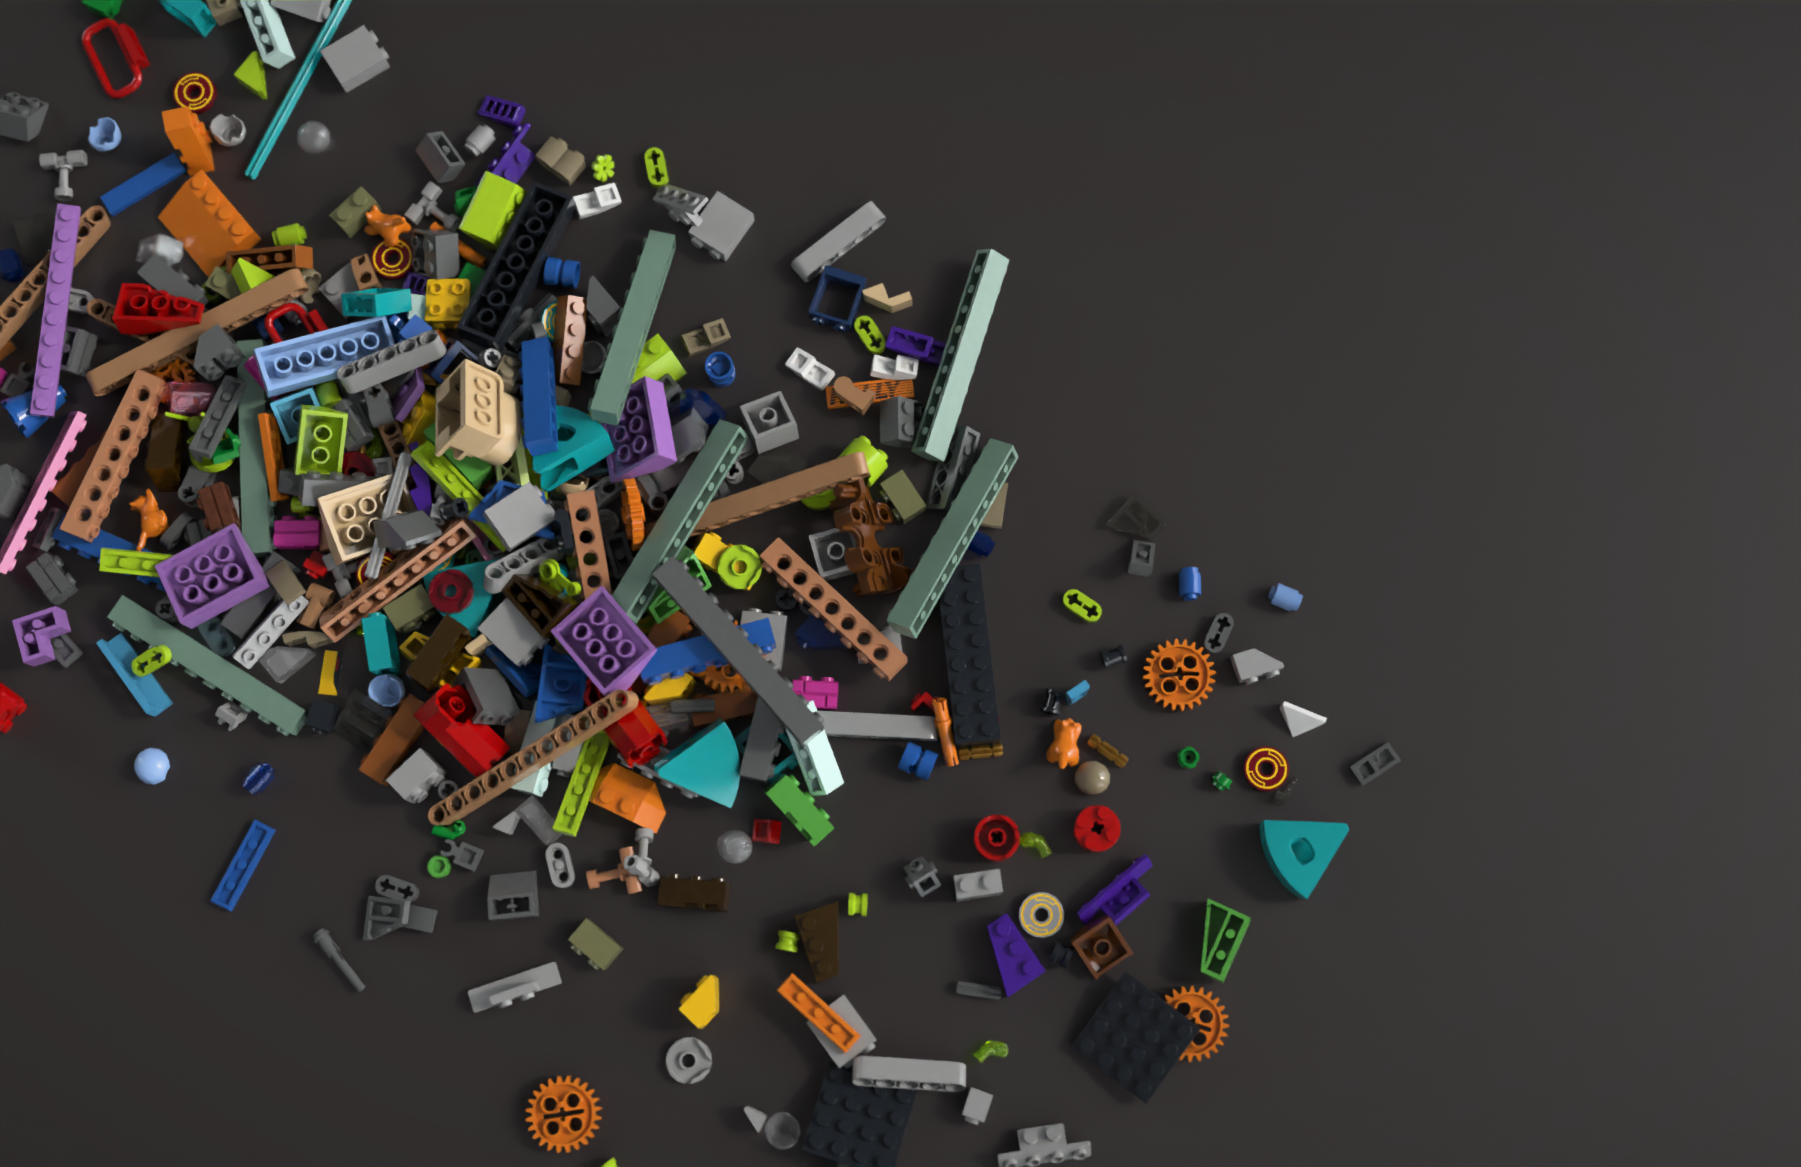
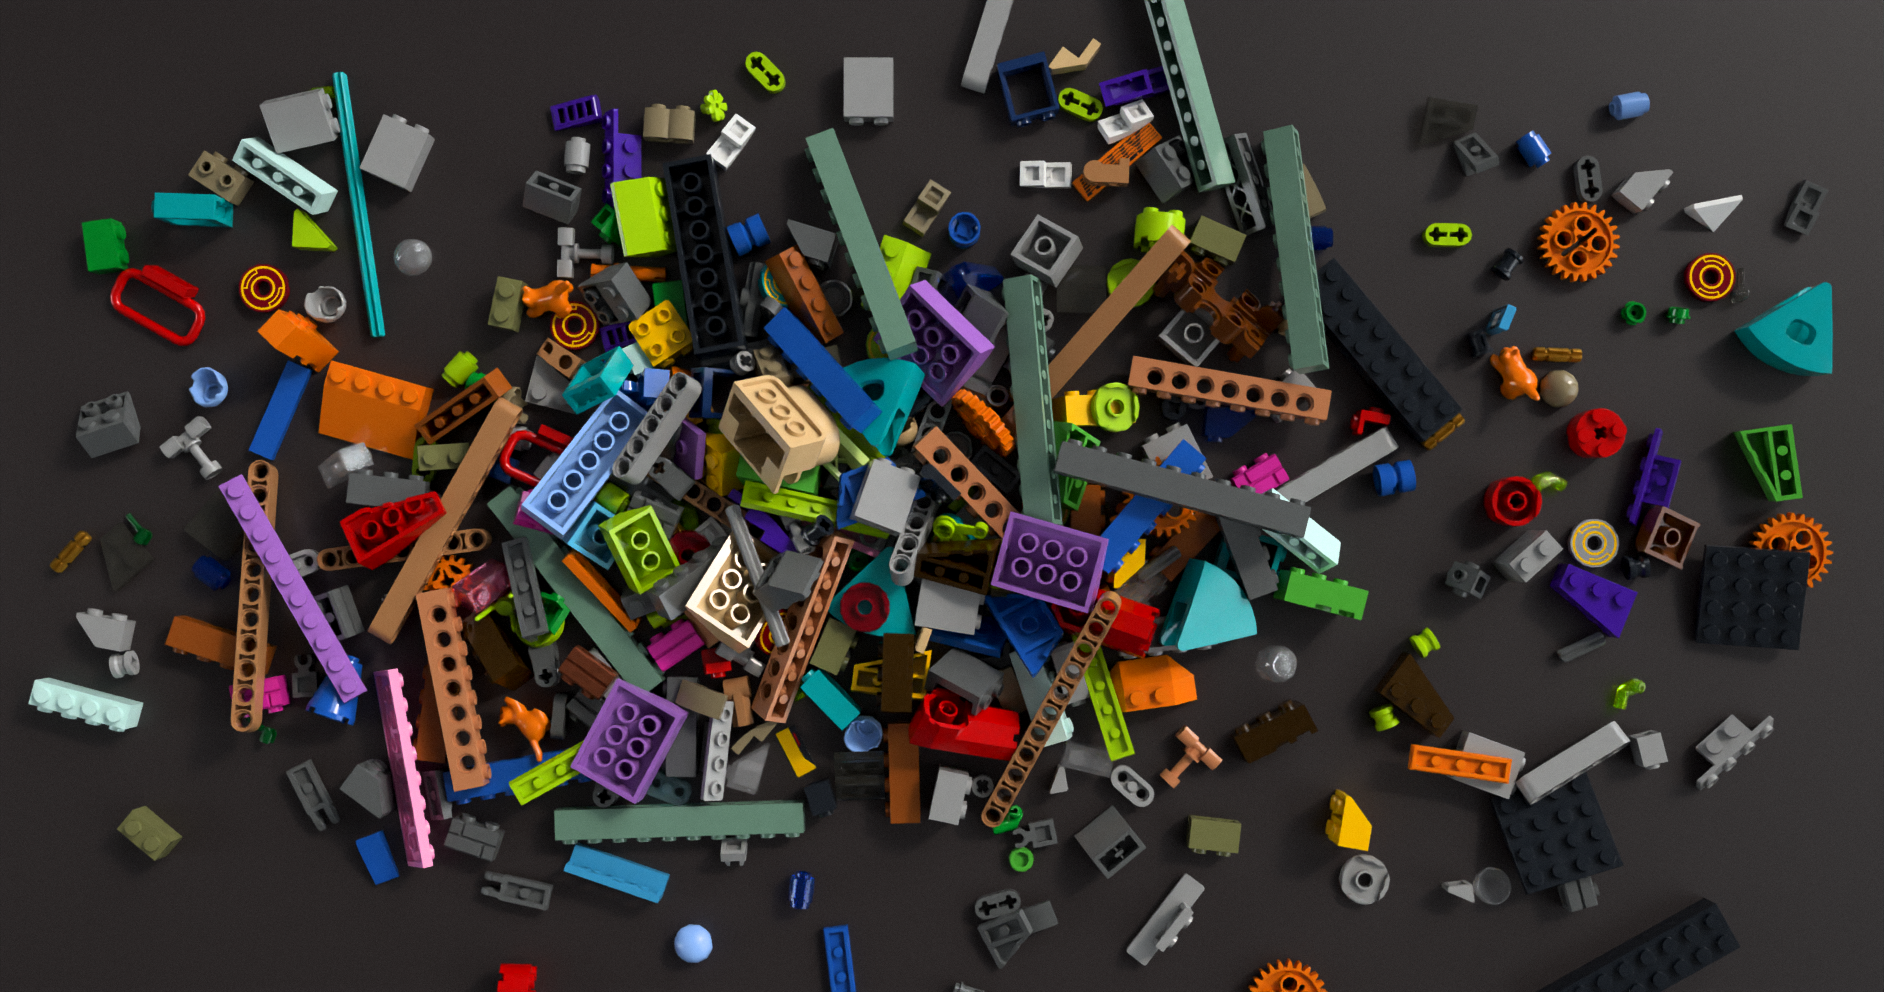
camera: 40 degrees left, 10 degrees up
(35, 631) = (500, 901): medium lavender brick -> none
(149, 656) = (630, 853): lime beam -> none
(216, 353) = (480, 529): dark grey slope -> none
(248, 275) = (458, 435): lime slope -> none
(640, 864) = (1208, 740): light grey bar -> none
(681, 204) = (820, 92): light grey bracket -> none
(766, 831) = (1295, 631): red slope -> none
(943, 722) = (1398, 428): orange pin -> none

